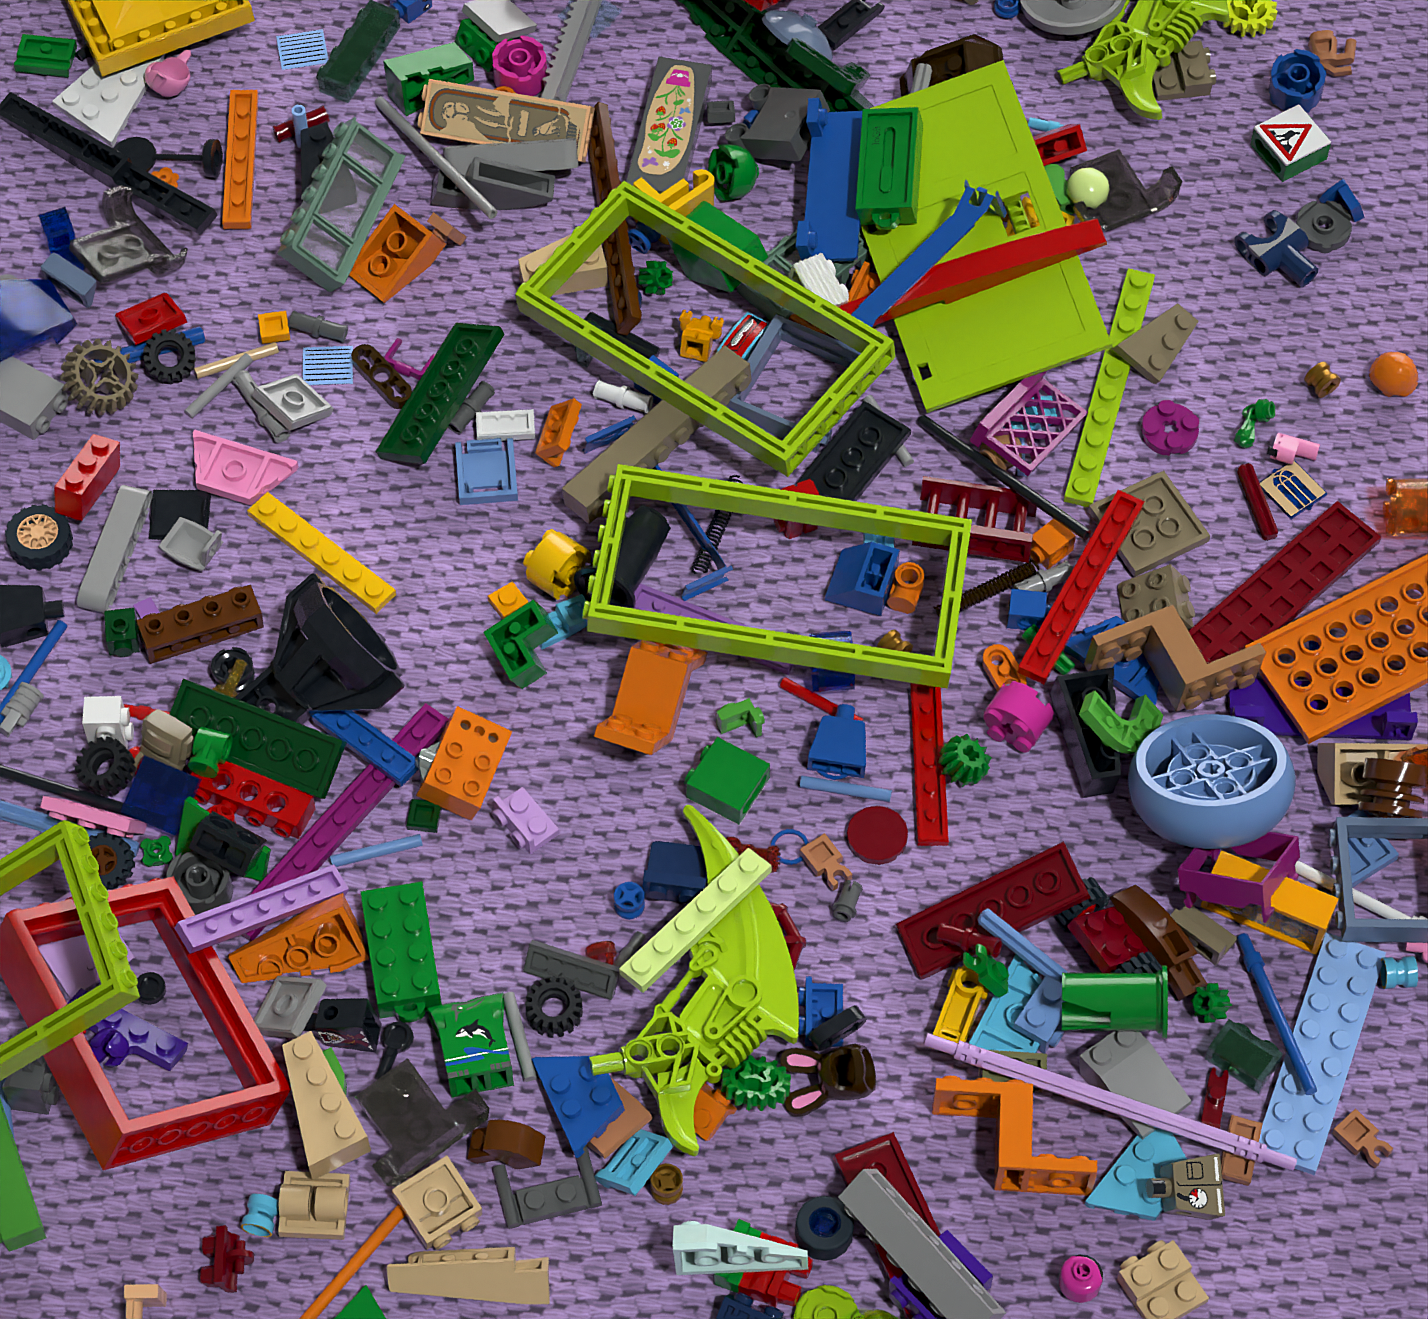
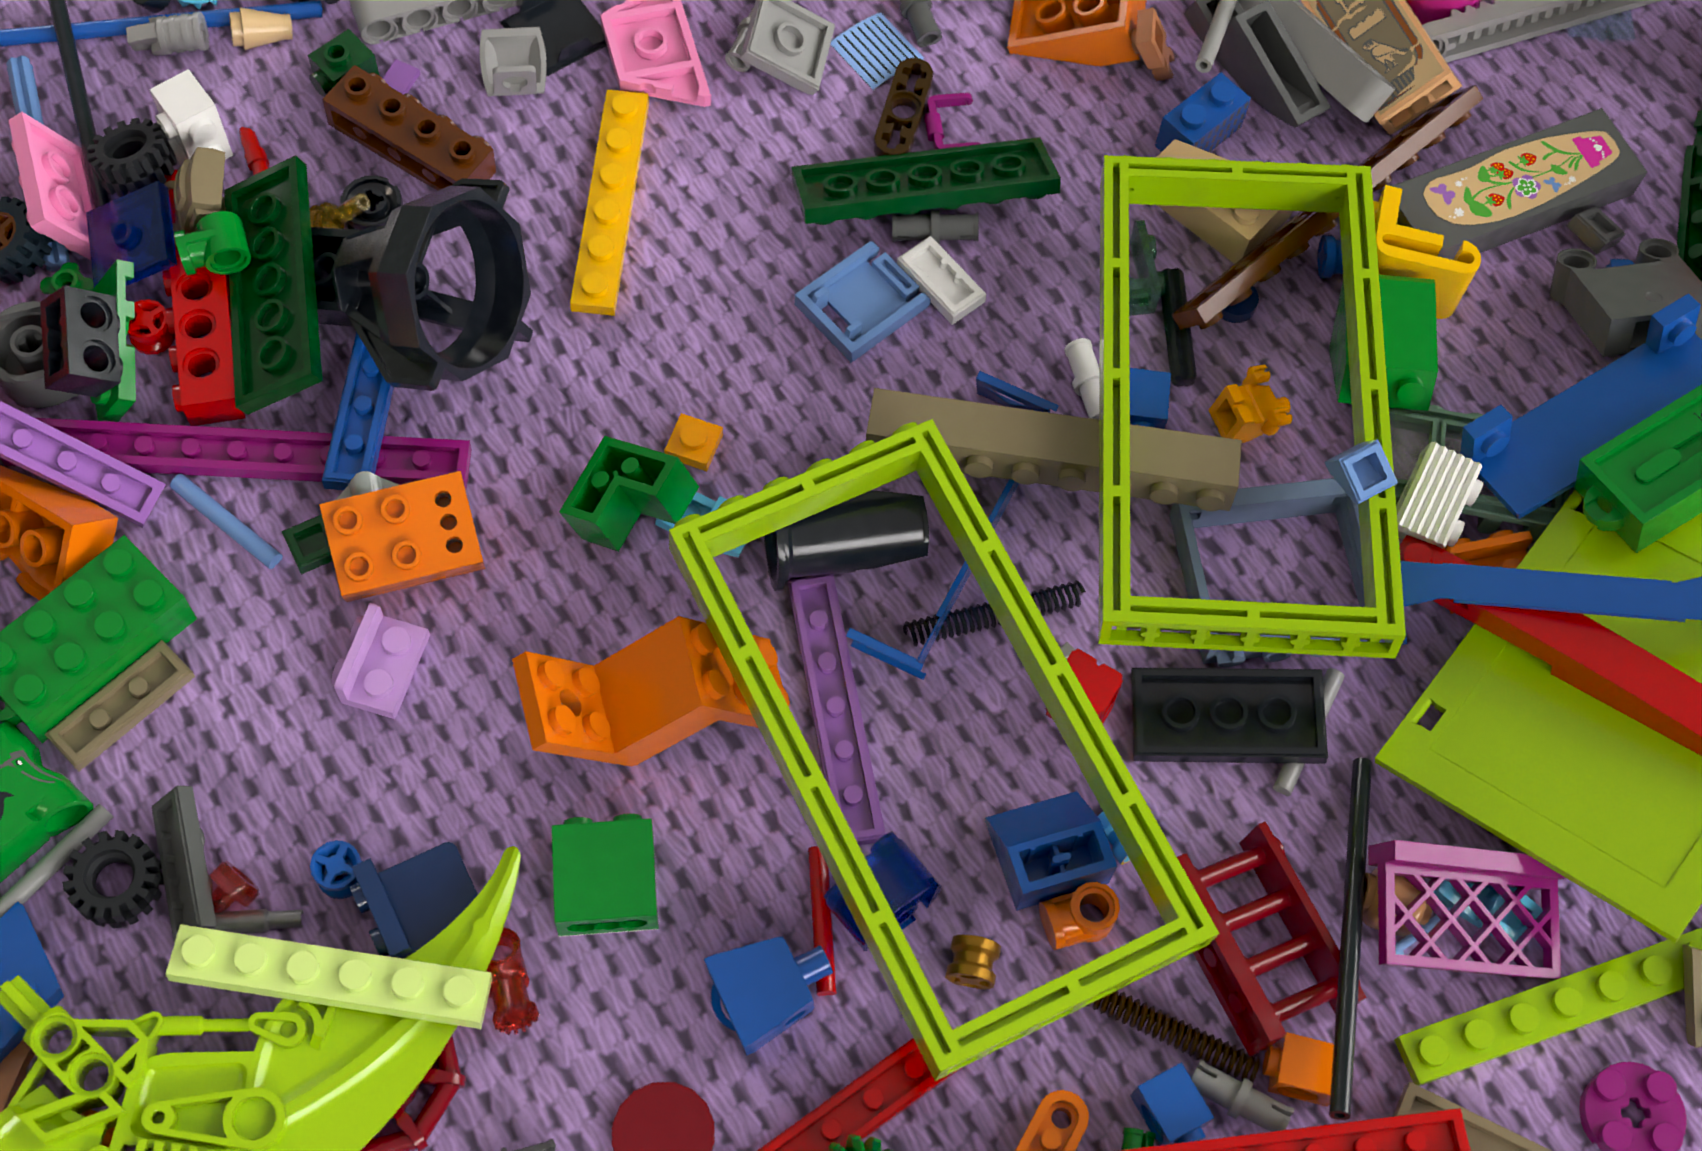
camera: 50 degrees right, 5 degrees up
(52, 663) = (258, 28): none -> tan cone
(450, 957) = (120, 705): none -> dark tan tile
(510, 239) = (1205, 116): none -> blue brick
(555, 563) = (770, 448): yellow brick -> none
(558, 431) = (972, 341): orange bracket -> none
(655, 277) = (1288, 297): green gear -> none
(735, 168) = (1522, 296): green cylinder -> none
(739, 714) = (716, 820): bright green bracket -> none
(745, 335) = (1287, 462): slope -> none
(790, 831) = (578, 1052): blue piece -> none
(795, 299) = (1362, 471): none -> medium blue slope
(825, 858) = (571, 1085): nougat plate -> none
(845, 788) = (709, 1042): medium blue bar -> none

